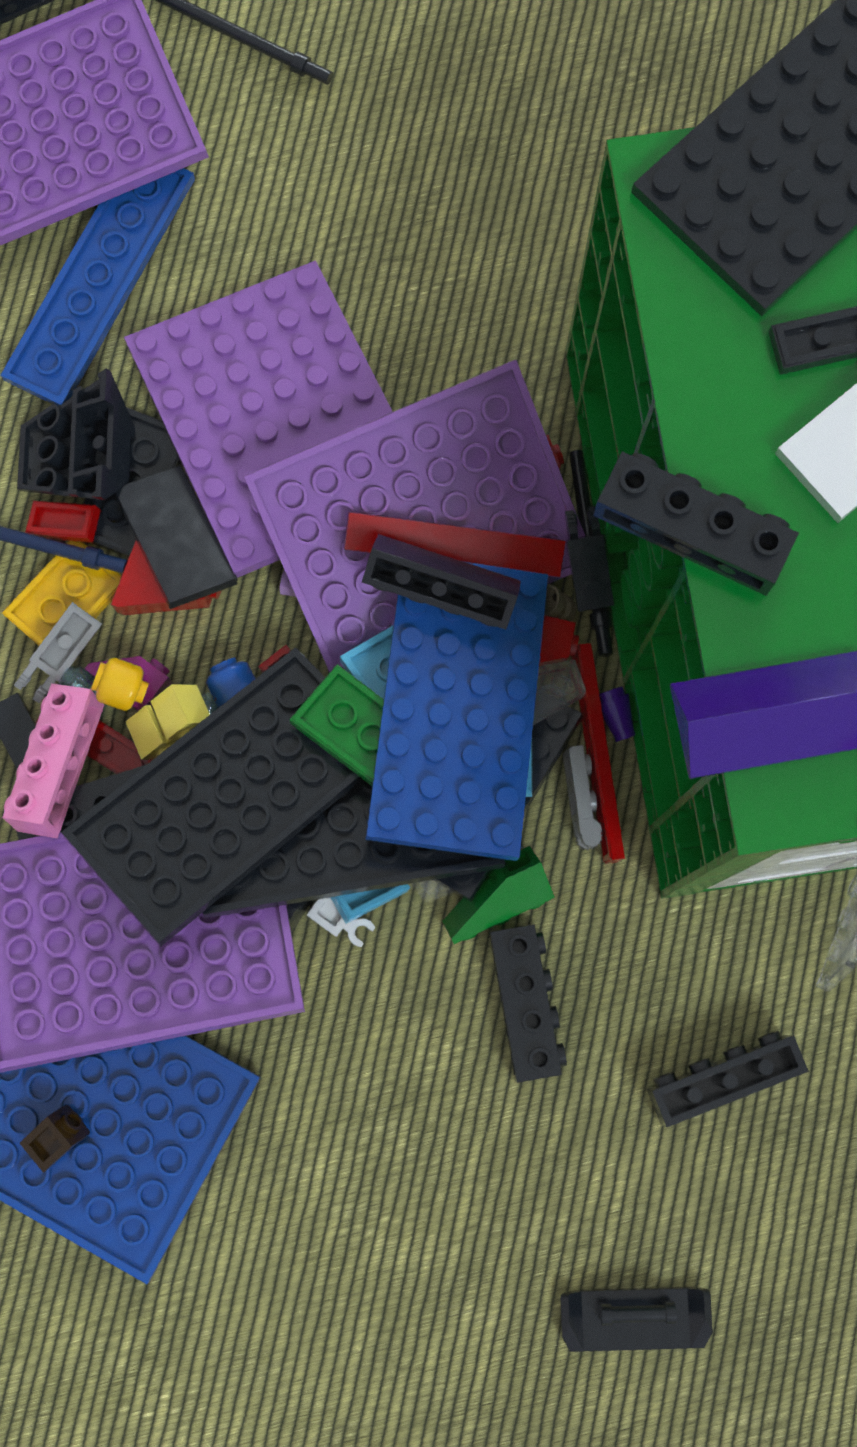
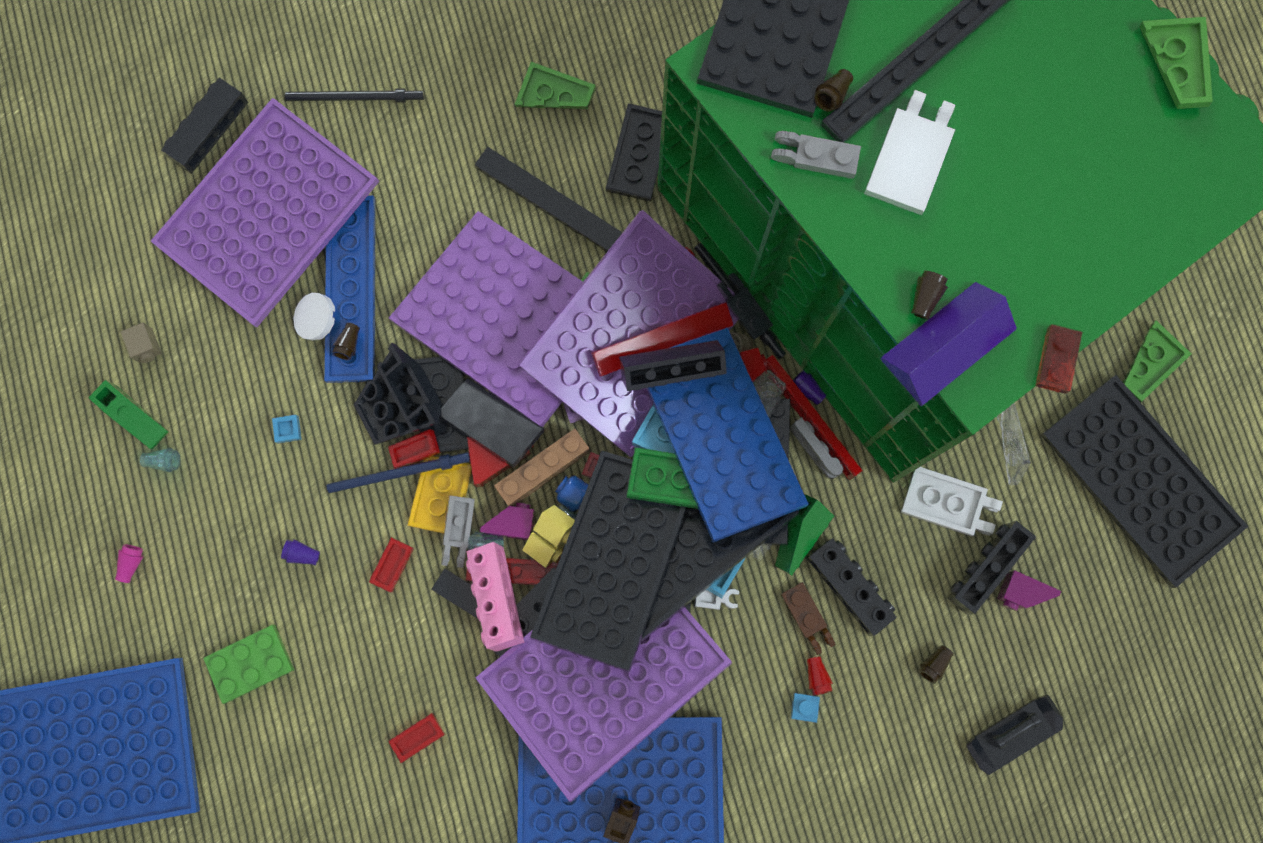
camera: 30 degrees left, 0 degrees up
(32, 287) = (314, 316): none -> white tile
(52, 340) = (346, 343): none -> dark brown cone
(119, 684) = (508, 529): yellow head -> none
(210, 632) = (542, 468): none -> medium nougat brick
(377, 1126) = (805, 707): none -> dark azure plate
(411, 287) = (547, 199): none -> black tile
(416, 1096) = (818, 677): none -> red cone
(447, 1008) = (807, 616): none -> reddish brown hinge
(500, 154) = (553, 89): none -> bright green wing
(545, 306) = (637, 154): none -> black tile
(581, 1167) = (936, 664): none -> dark brown cone
(696, 522) = (845, 257): black brick -> none
(720, 964) = (949, 502): none -> white tile
(740, 368) = (818, 154): none -> light grey hinge
(754, 1137) = (1022, 591): none -> magenta slope
(784, 630) = (928, 293): none -> dark brown cone
(807, 292) = (832, 92): none -> dark brown cone

